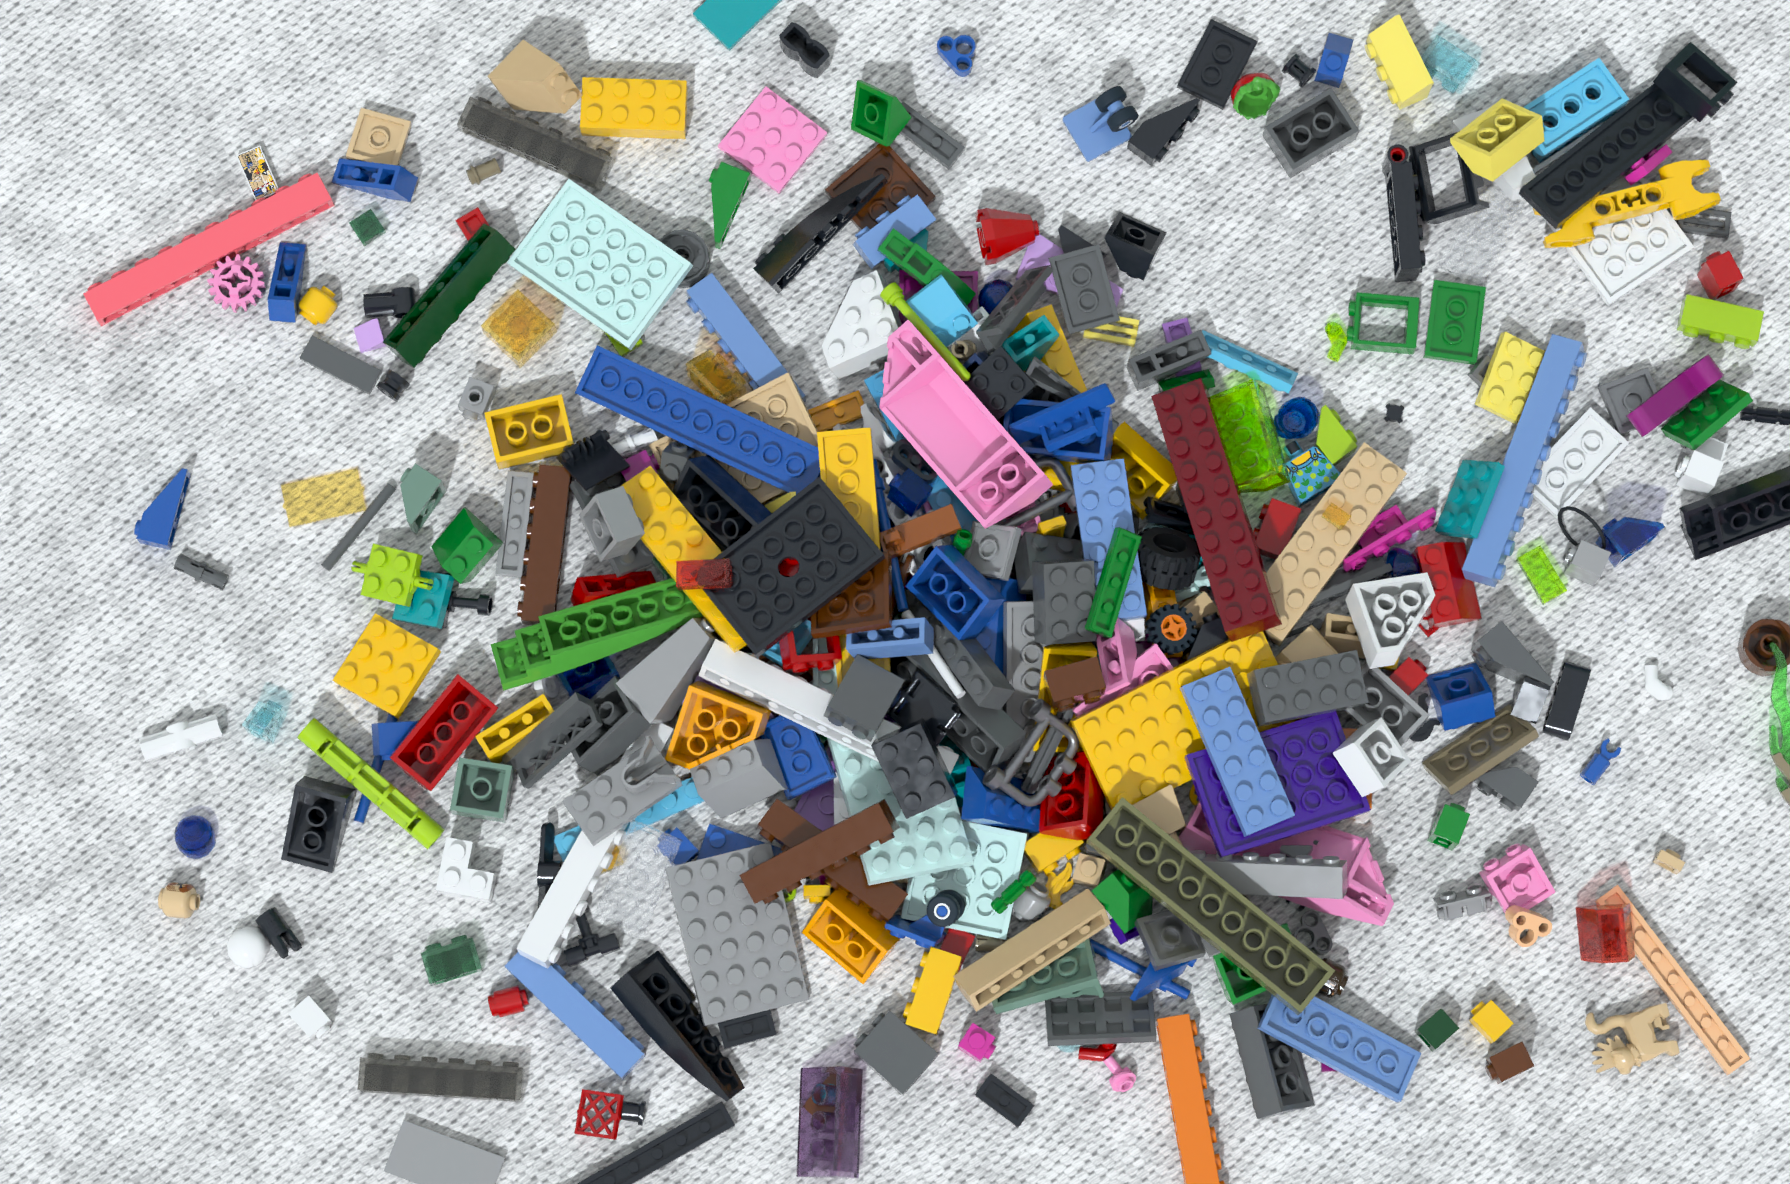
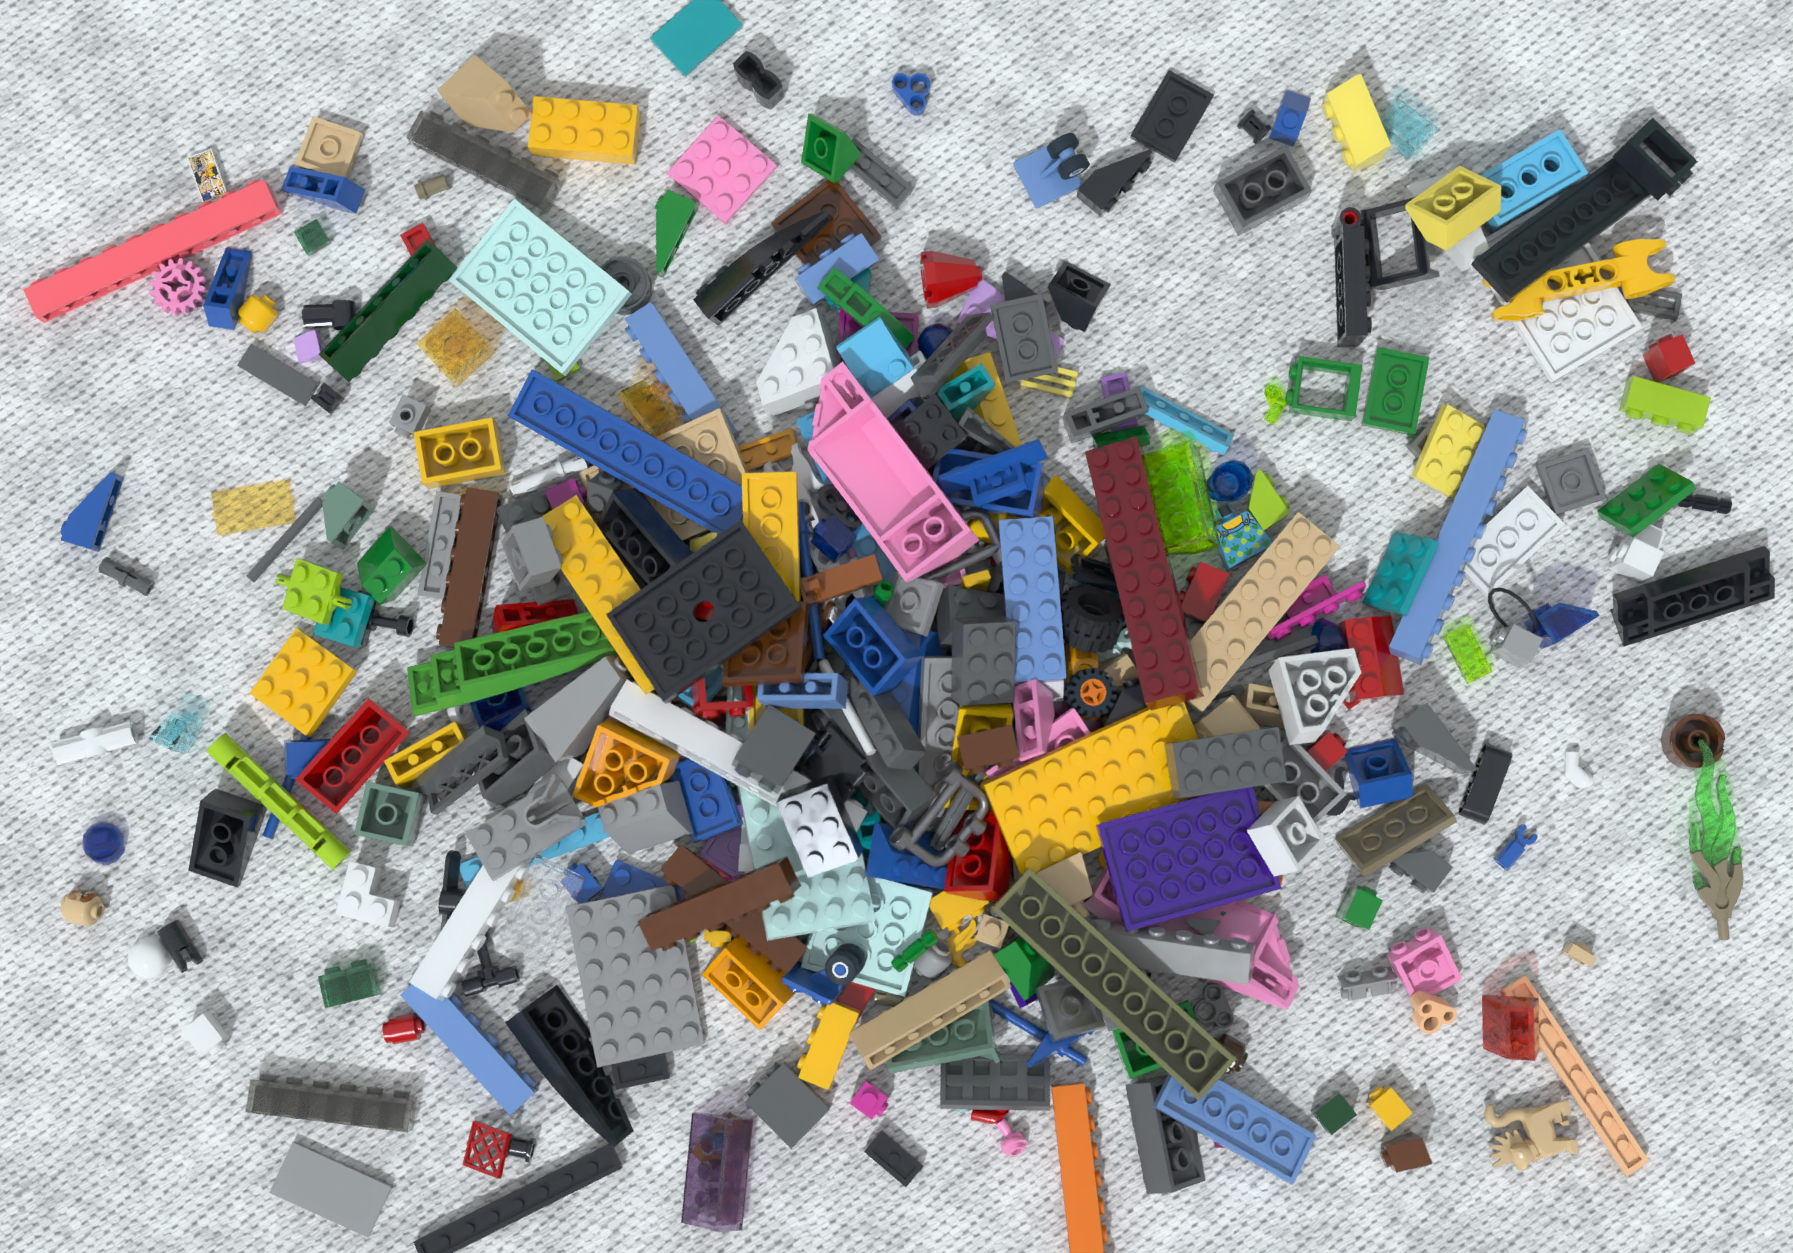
camera: 10 degrees right, 5 degrees up
(592, 460) = (519, 486): black hinge -> none
(703, 574) = (617, 614): clear red plate -> none
(893, 295) = (830, 335): lime piece -> none
(970, 349) = (898, 394): dark tan pin -> none
(1113, 582) = (1034, 644): green tile -> none
(1237, 751) = (1150, 824): medium blue plate -> none
(1254, 95) = (1207, 149): bright green hair -> none
(1336, 516) = (1265, 587): clear yellow piece -> none
(1394, 413) = (1328, 480): black piece -> none
(1529, 700) = (1449, 784): slope -> none
(1645, 166) = (1602, 241): dark pink plate -> none
(1674, 395) = (1616, 478): magenta beam -> none

